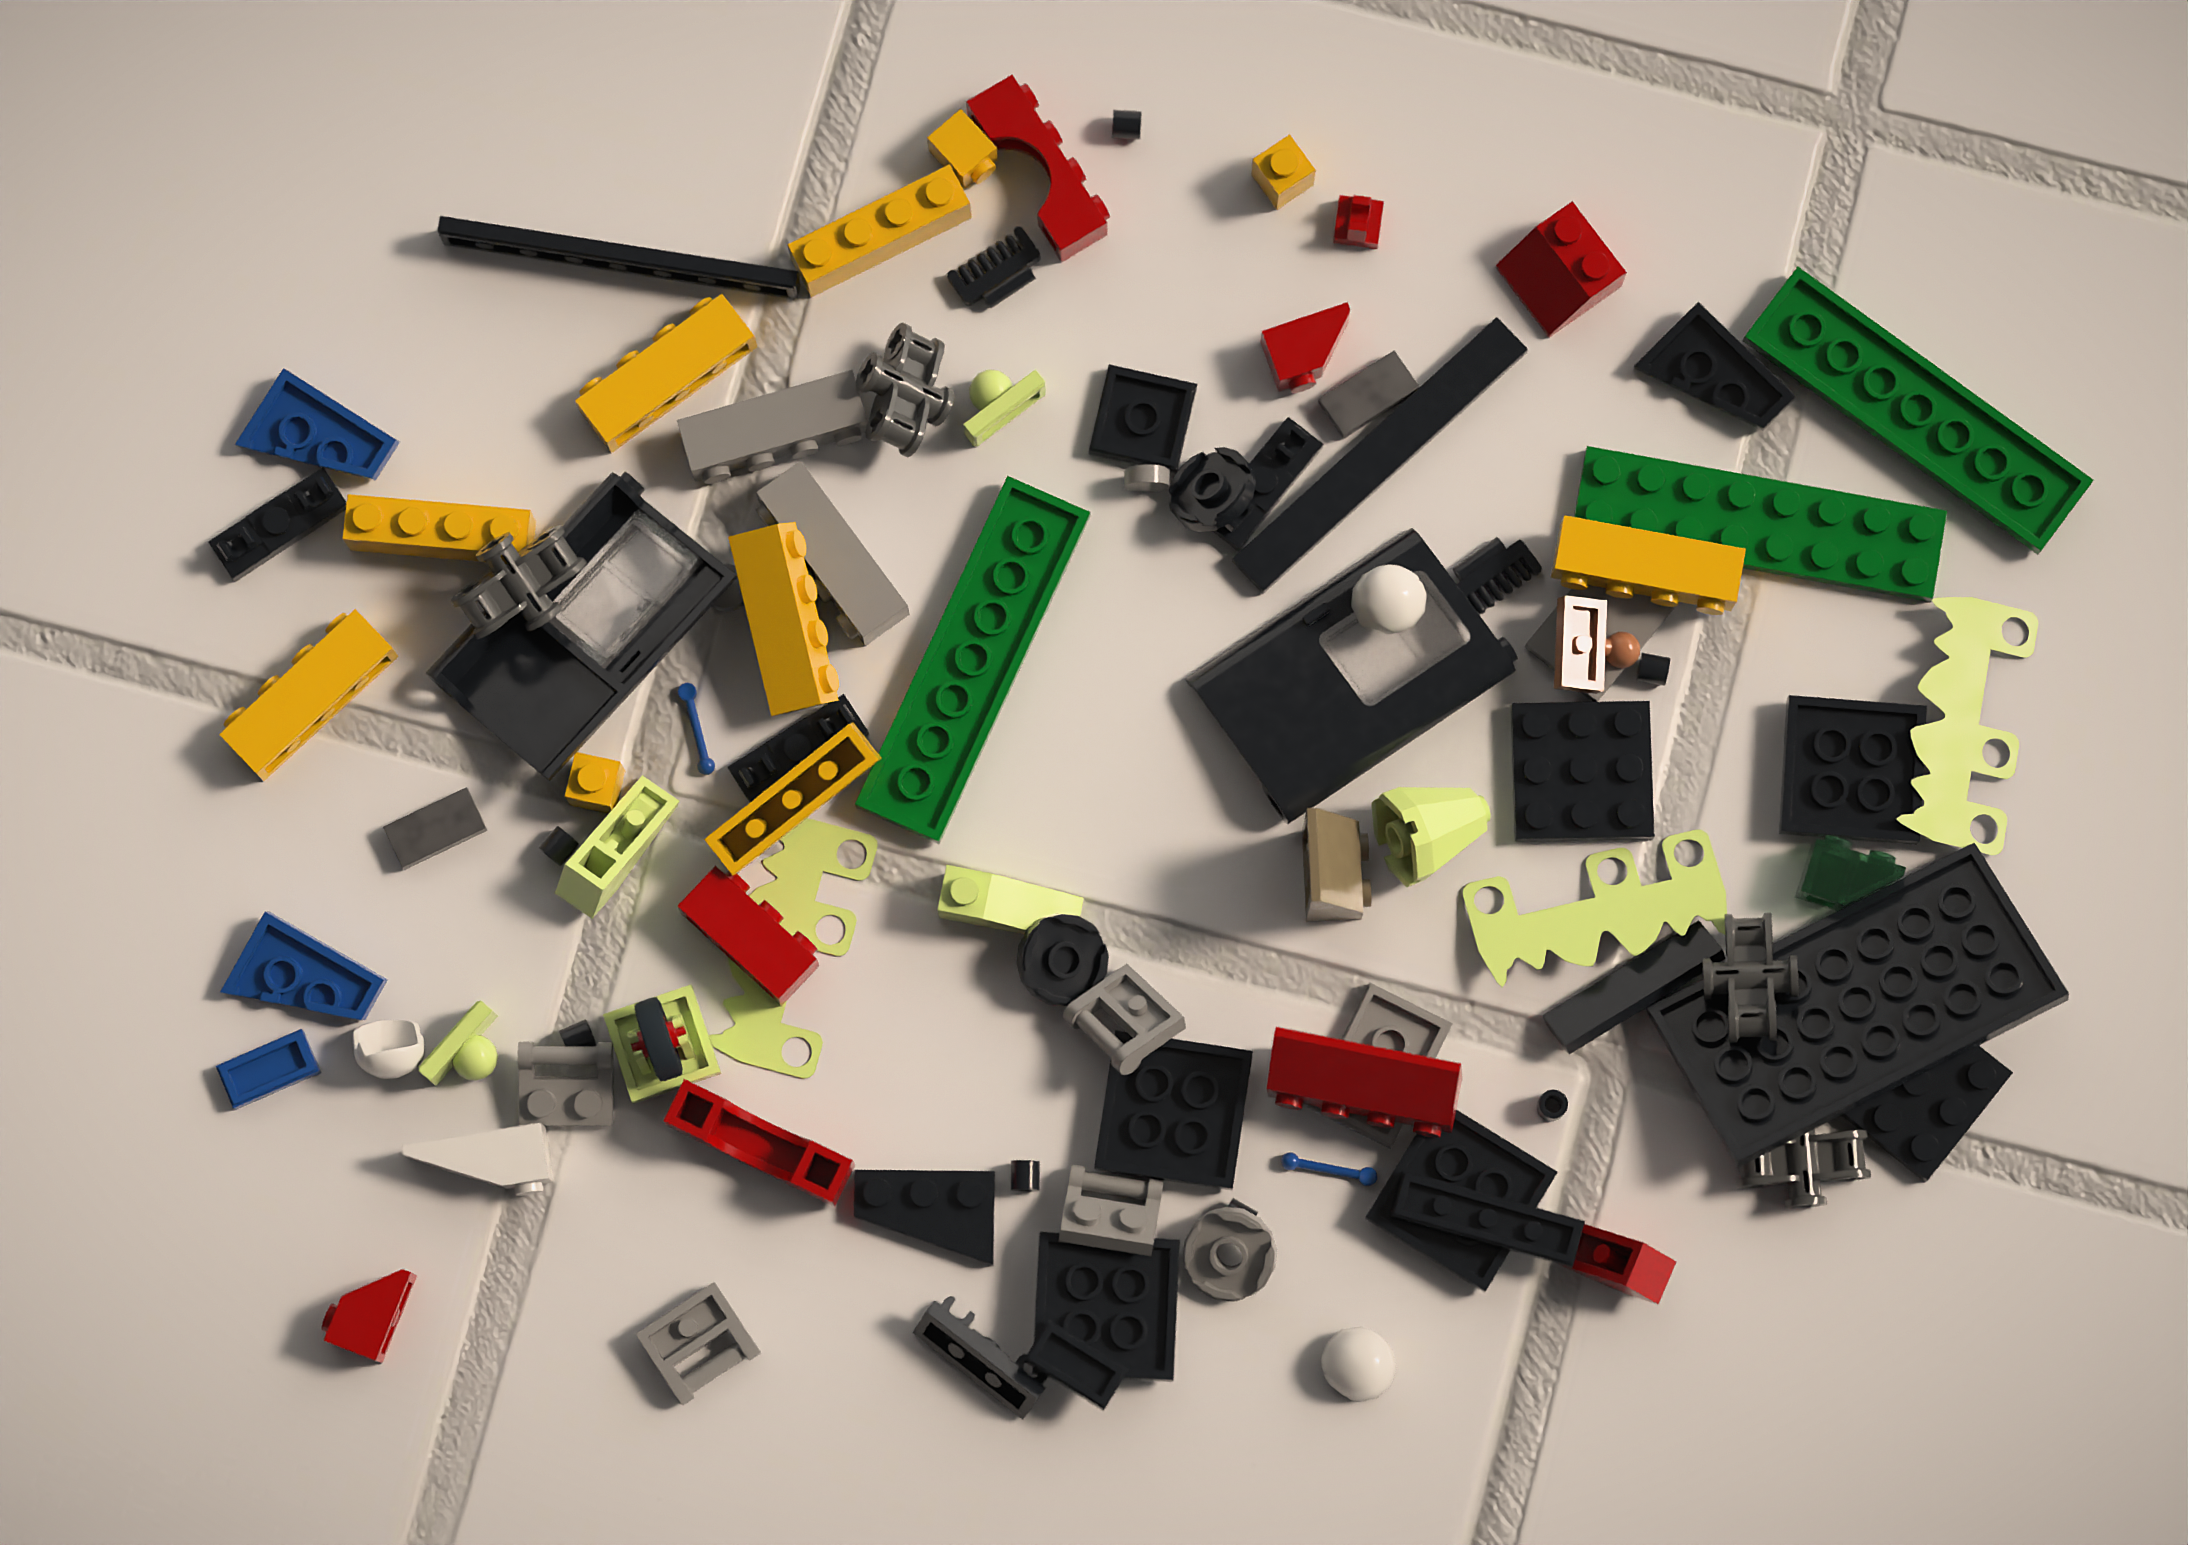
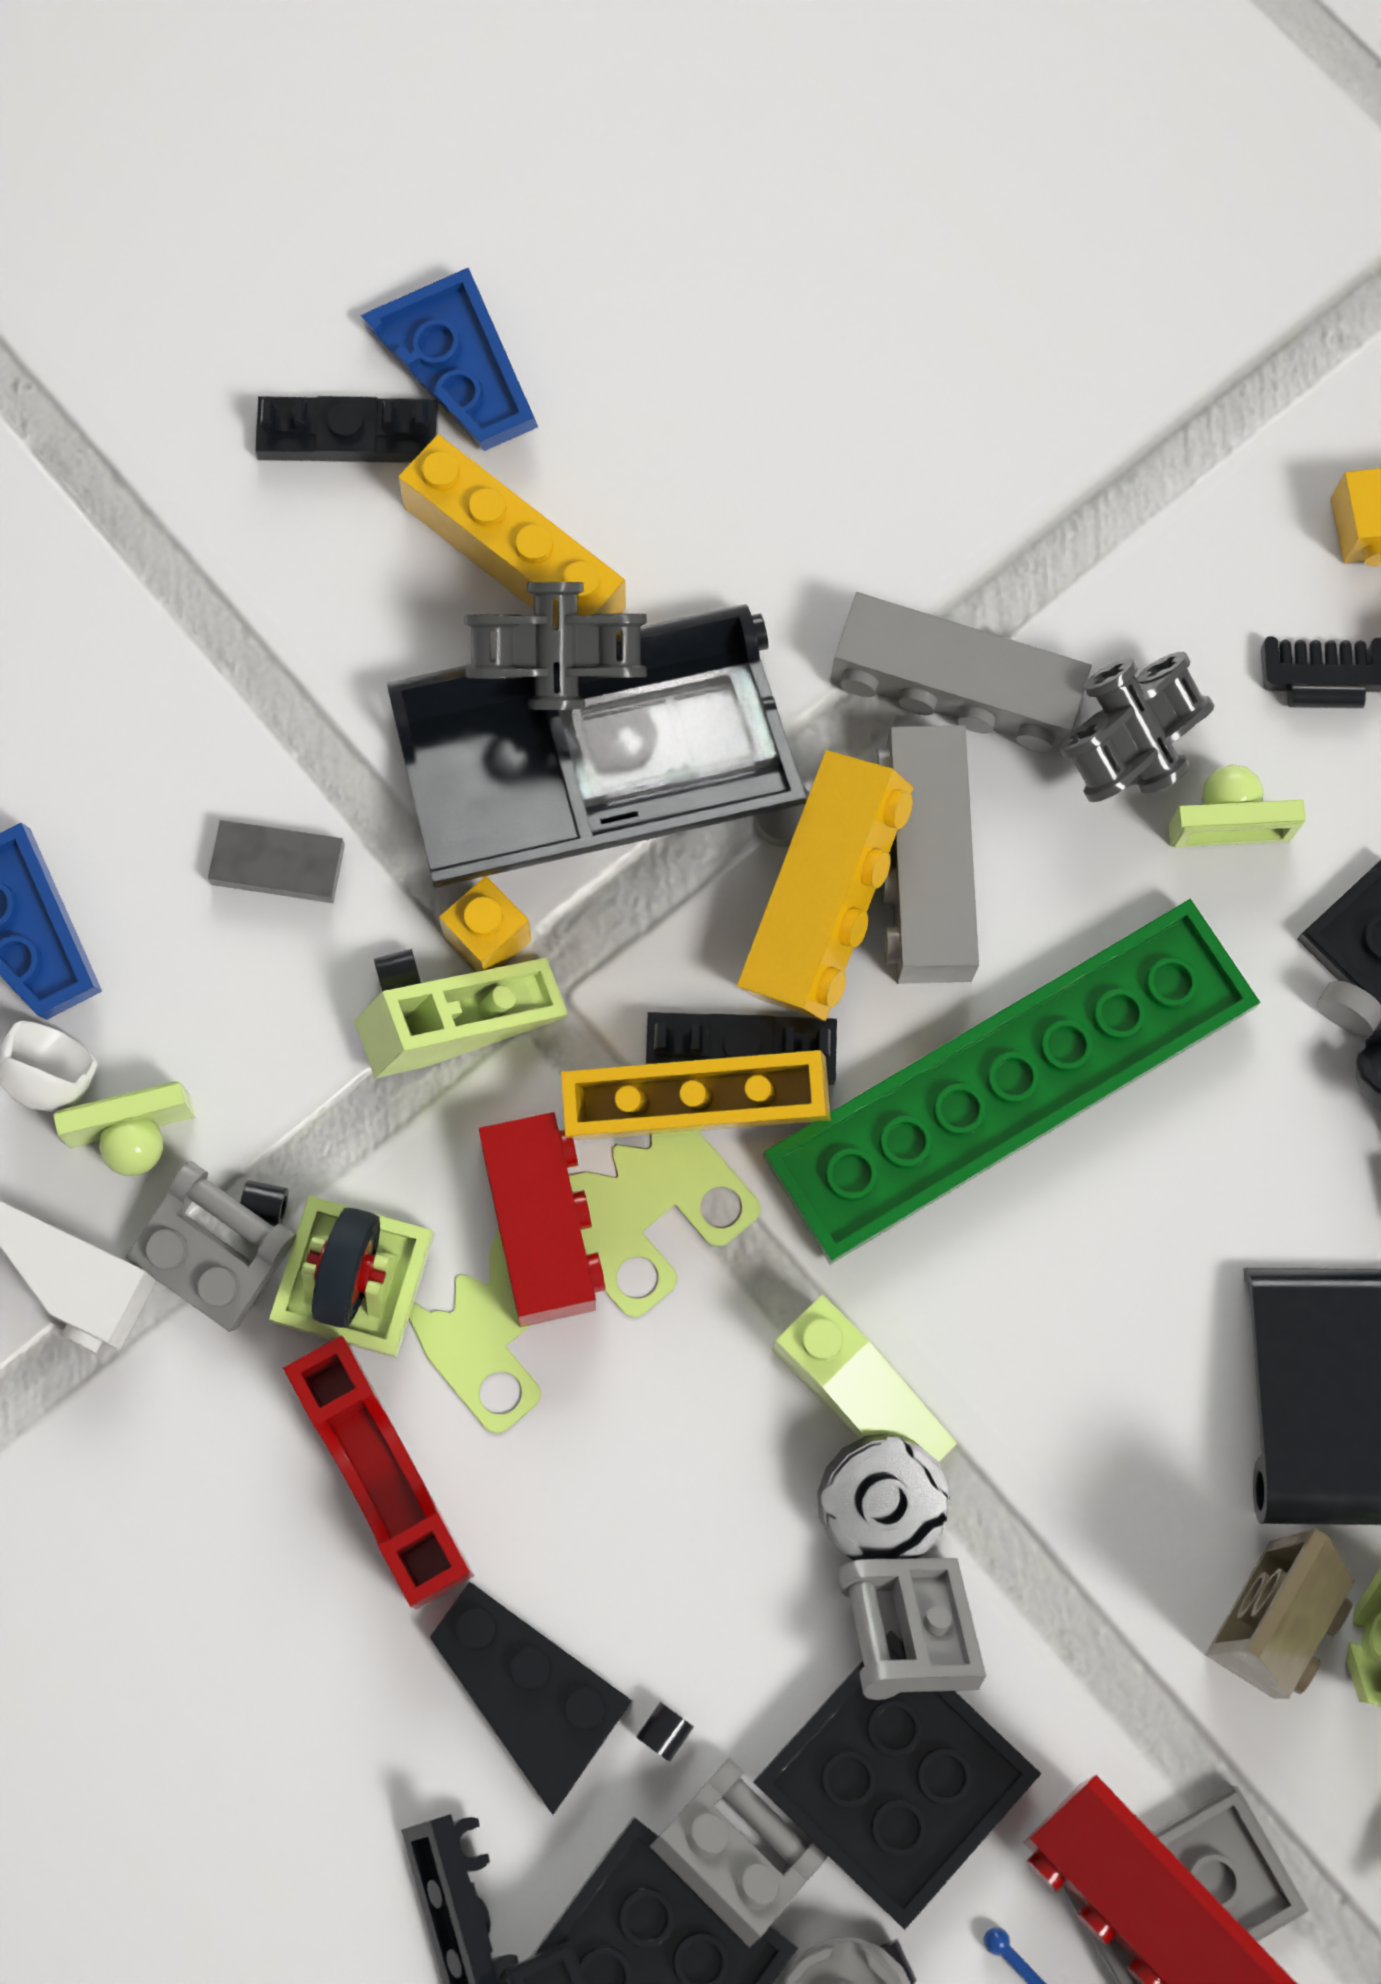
camera: 30 degrees right, 5 degrees down
(308, 693) = (243, 623): yellow brick -> none
(619, 257) = (915, 389): black tile -> none
(665, 372) = (880, 538): yellow brick -> none
(687, 693) = (660, 902): blue hinge -> none
(689, 1330) = (142, 1638): light grey plate -> none
(880, 230) = (1223, 541): yellow brick -> none

